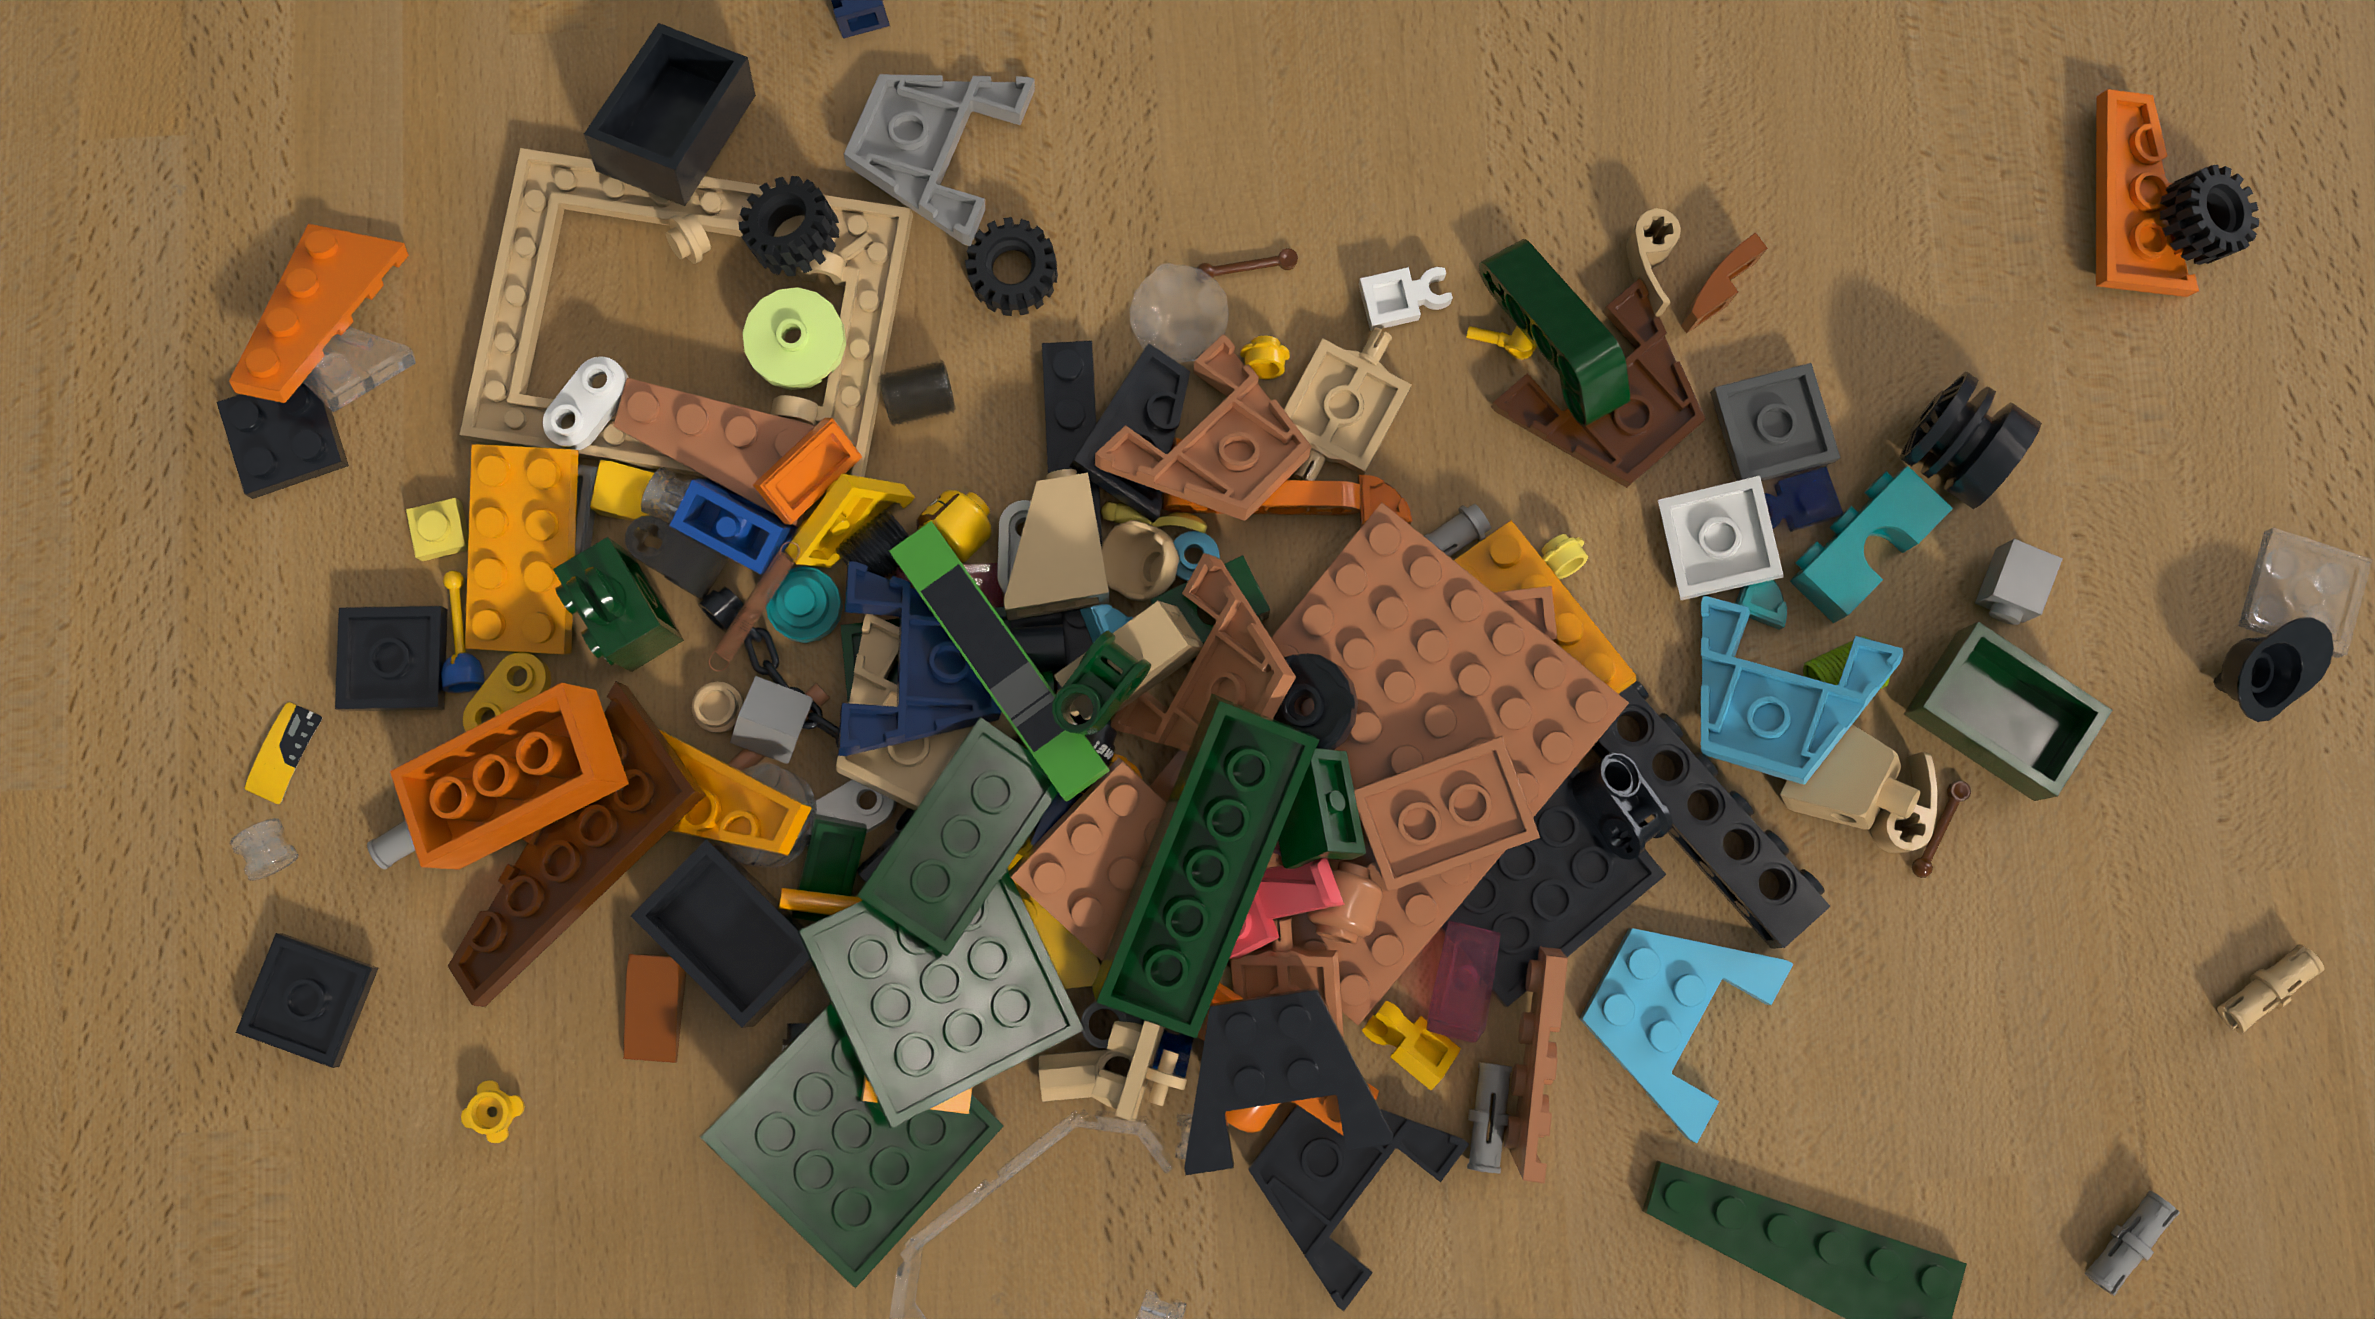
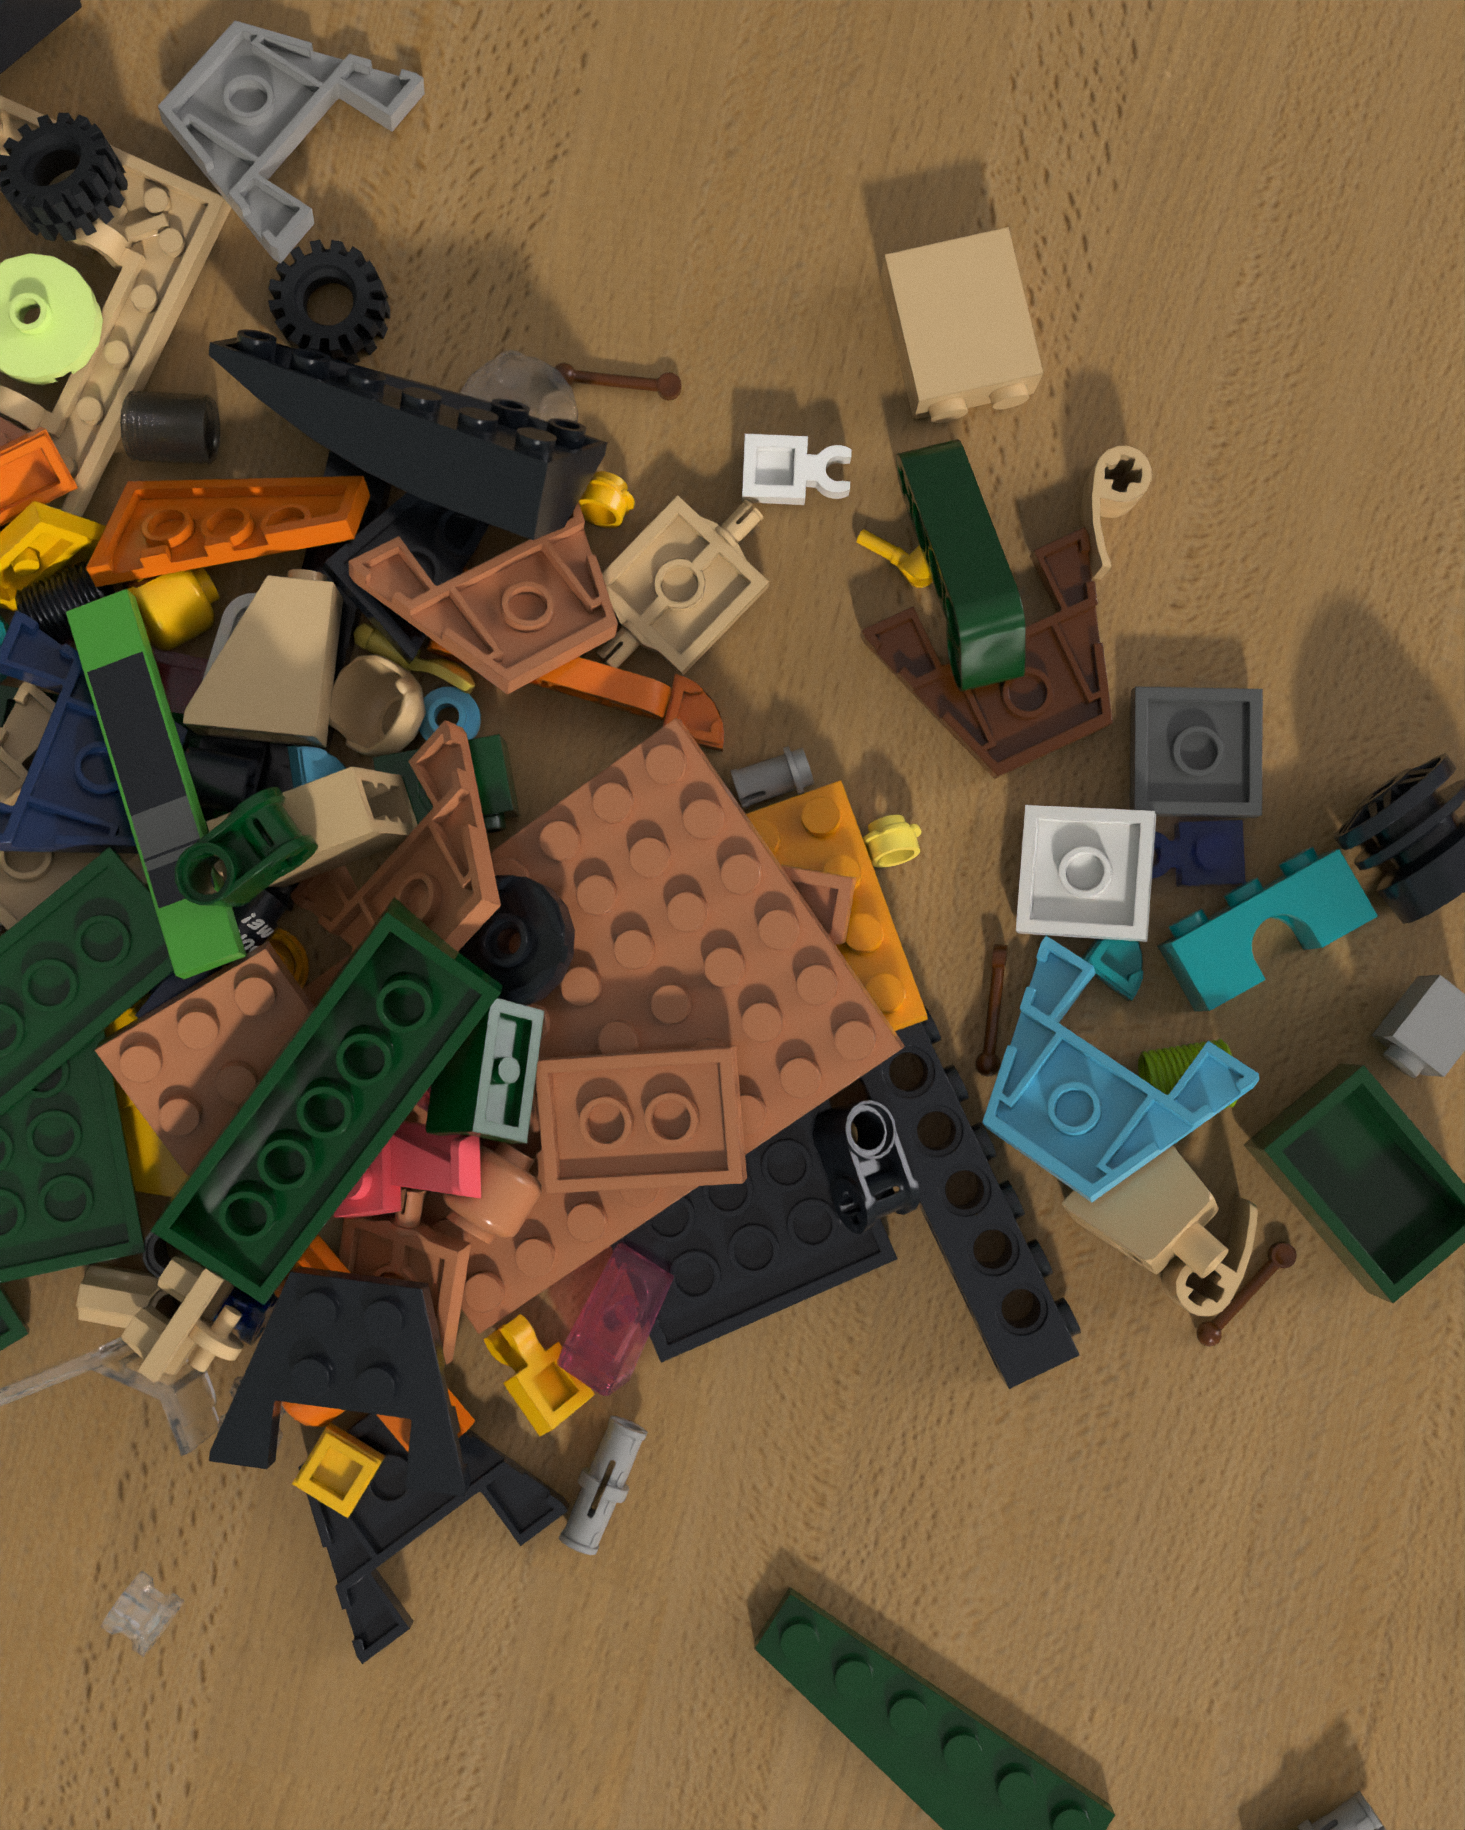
camera: 15 degrees right, 5 degrees up
(970, 456) = (221, 521): none -> orange wing
(1121, 347) = (423, 438): none -> black wedge
(1282, 1161) = (338, 1470): none -> yellow tile
(1499, 154) = (961, 325): none -> tan brick
(1532, 1118) = (662, 1457): nougat wing -> none
(1654, 1002) = (841, 1403): medium azure wing -> none
(1687, 705) = (988, 1062): none -> reddish brown hinge
(1719, 289) = (1175, 568): dark orange slope -> none

